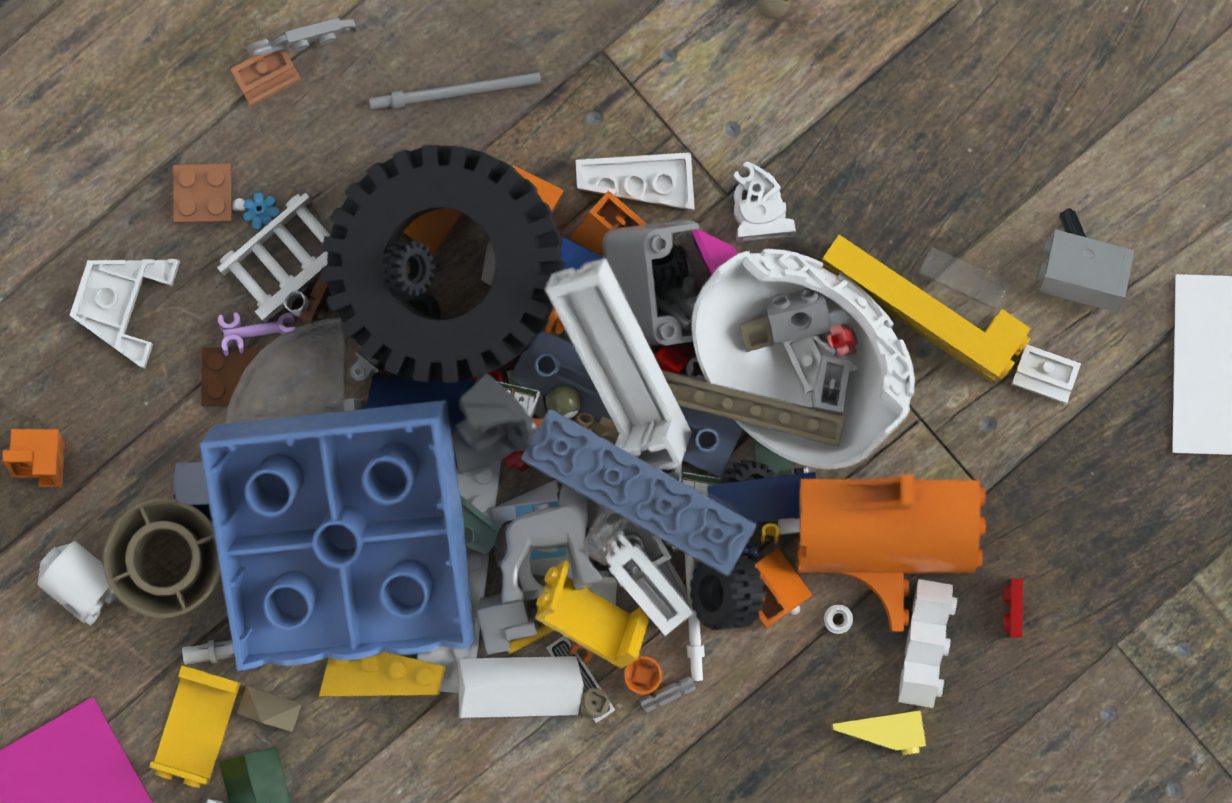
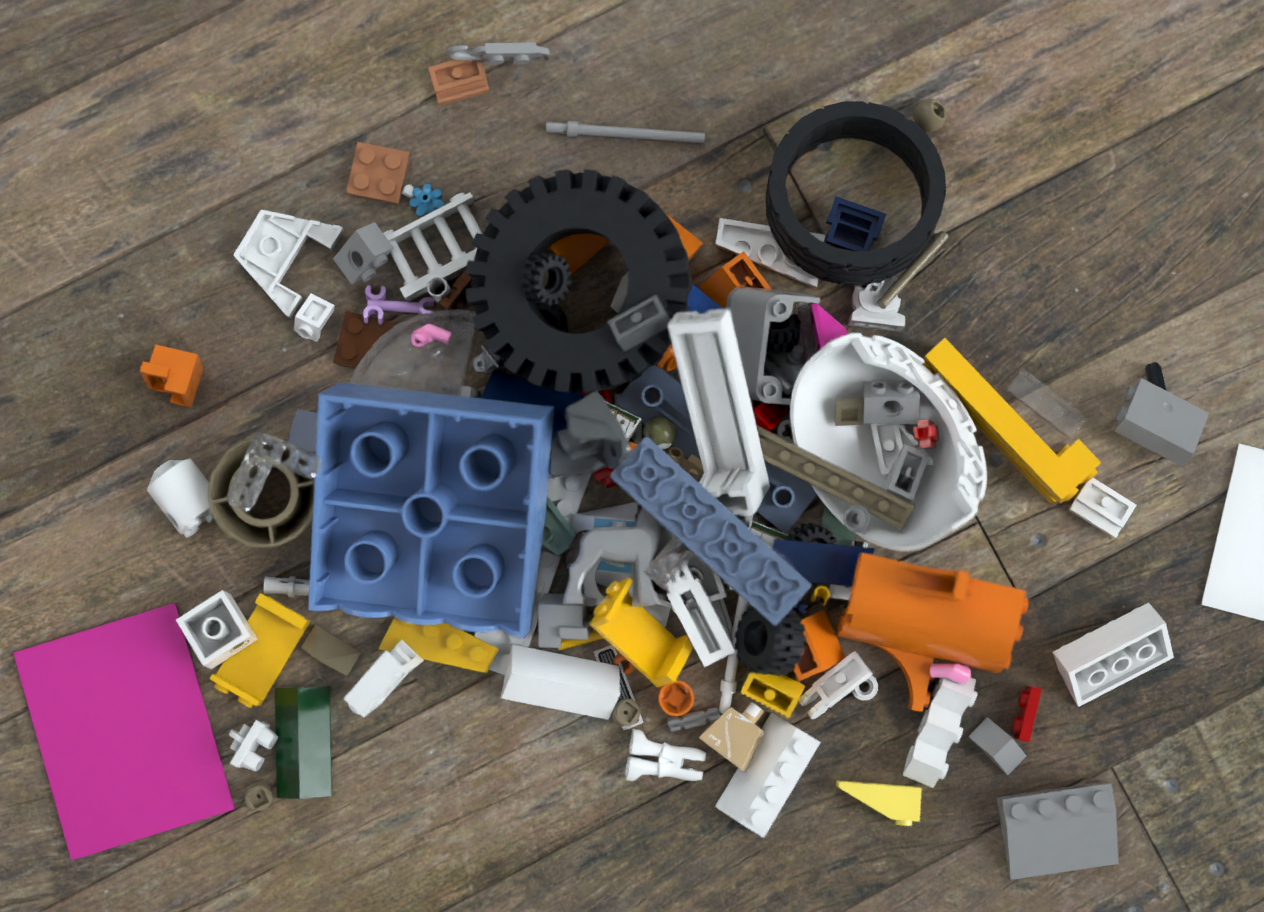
camera: 10 degrees right, 0 degrees up
(144, 714) = (216, 629): none -> white brick
(156, 524) = (264, 460): none -> clear beam
(169, 362) = (312, 317): none -> white bracket
(208, 283) = (363, 253): none -> light grey brick
(296, 352) = (429, 333): none -> bright pink arm
(331, 725) = (382, 679): none -> white window
(516, 293) = (639, 323): none -> dark grey slope
(651, 743) = (669, 759): none -> white piece
(711, 24) = (868, 123): none -> black tyre
(714, 700) = (735, 735): none -> tan torso
(717, 140) = (853, 225): none -> dark blue plate
(743, 644) = (774, 691): none -> yellow brick
(757, 733) = (775, 768): none -> white slope
(782, 445) = (850, 518): none -> light grey plate
(791, 168) = (912, 270): none -> dark tan bar
(807, 623) = (836, 684): none -> white hinge
(927, 582) = (954, 672): none -> bright pink arm
(991, 649) = (997, 745): none -> light grey slope
(1074, 722) = (1059, 829): none -> light grey slope
(1091, 525) = (1114, 654): none -> white slope

